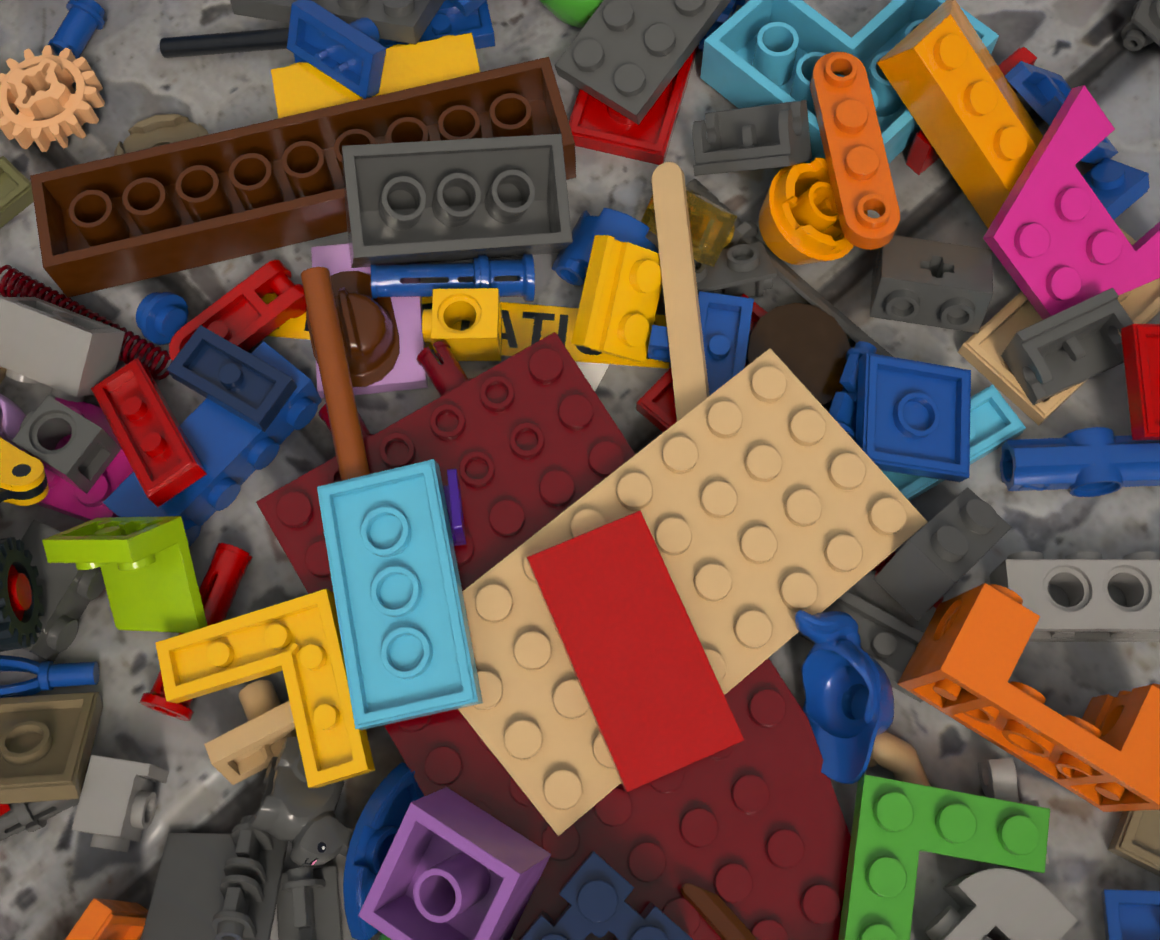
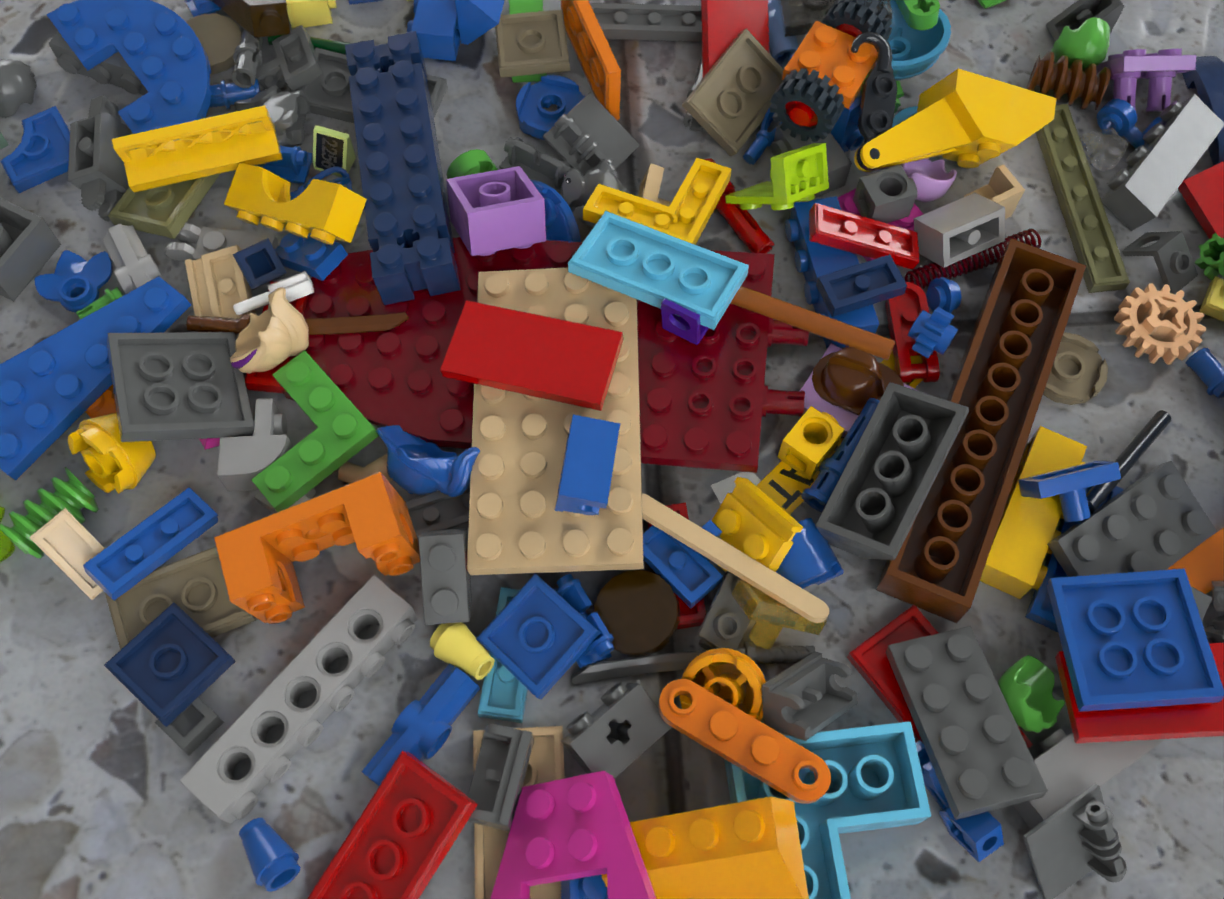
camera: 125 degrees right, 5 degrees down
(117, 801) = (672, 128): light grey brick -> none
(238, 275) = (932, 332): none -> blue gear
(728, 463) = (587, 466): none -> blue hinge
(992, 478) = (460, 648): none -> light yellow cone

